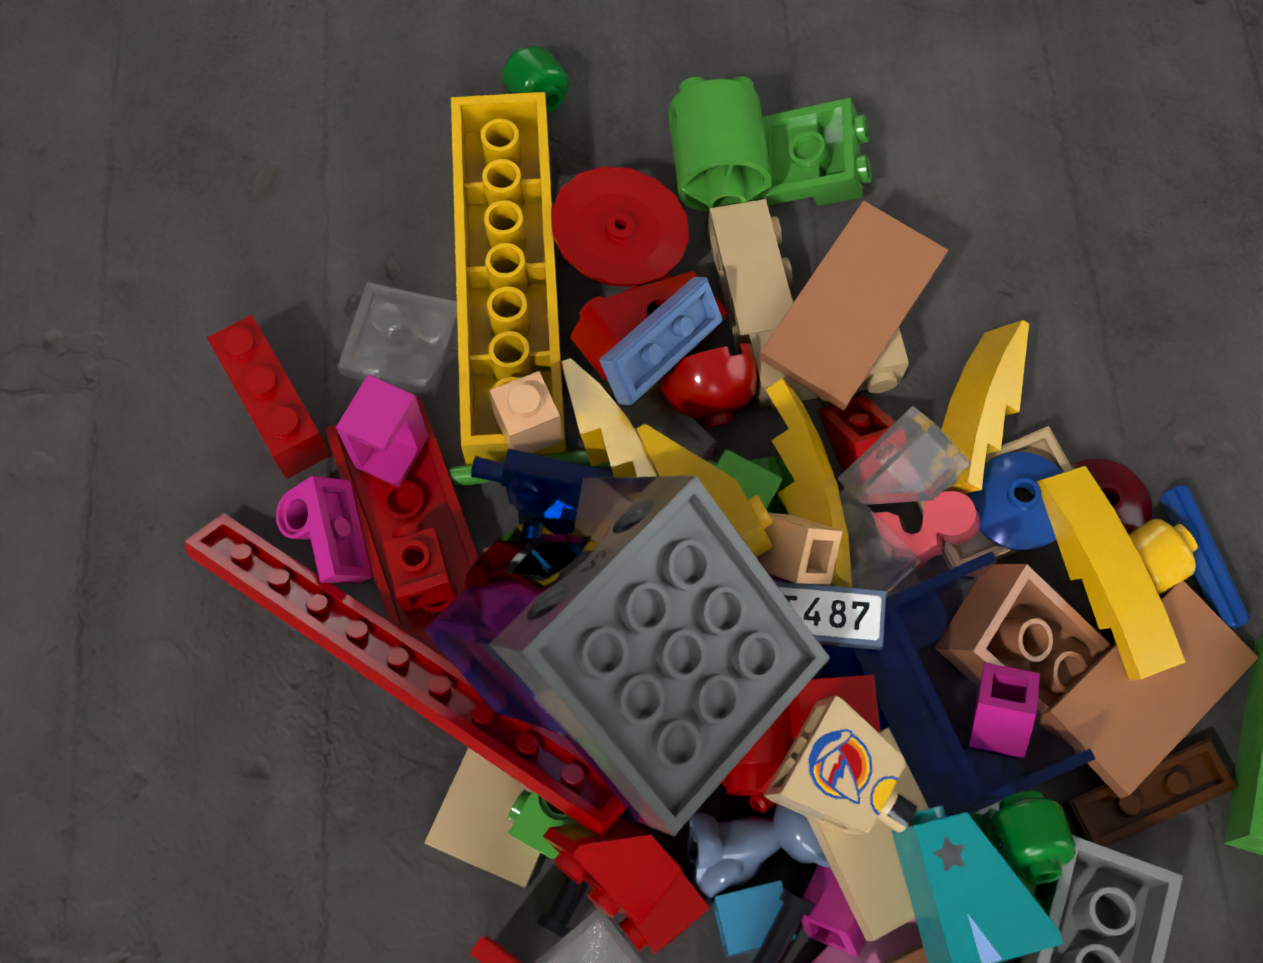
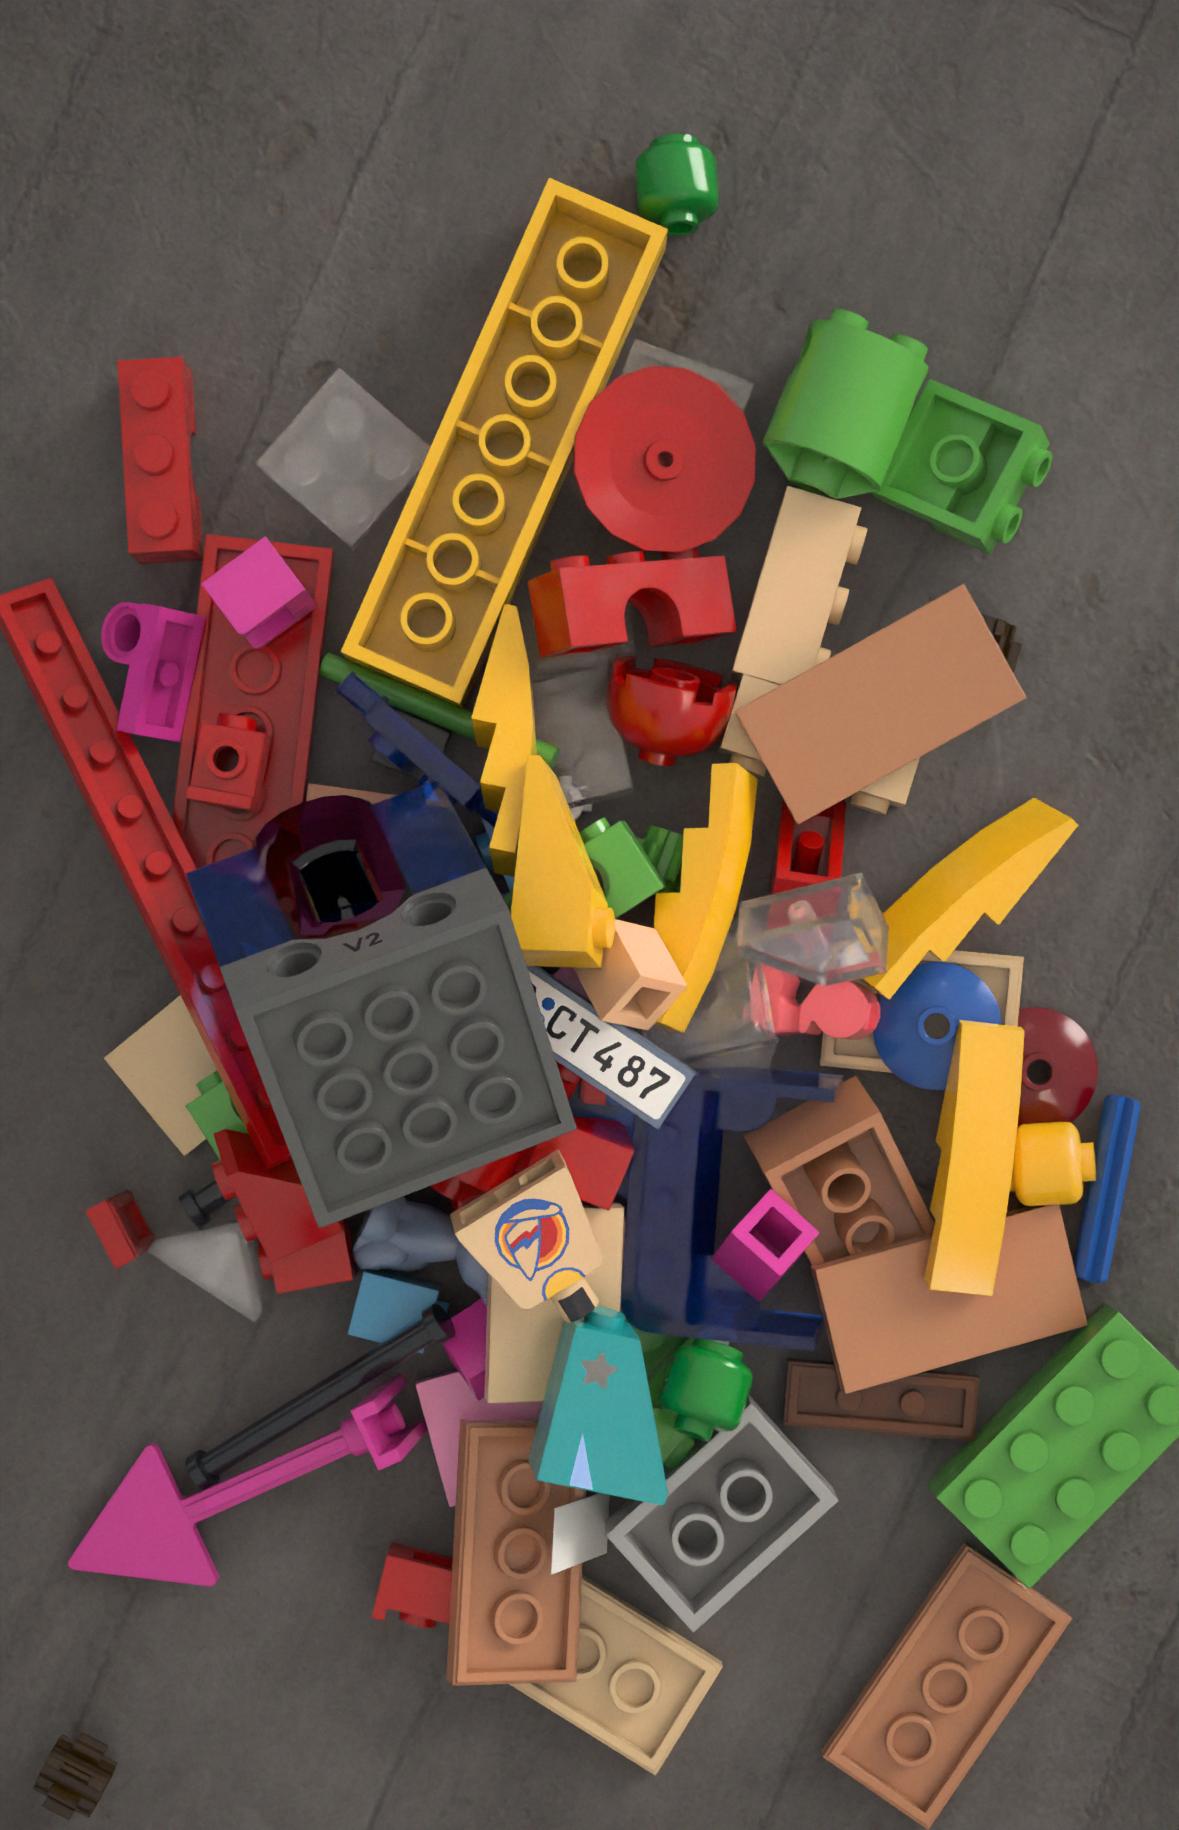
camera: 30 degrees right, 20 degrees up
(527, 414) = (422, 664): light nougat brick -> none
(661, 340) = (622, 650): medium blue tile -> none

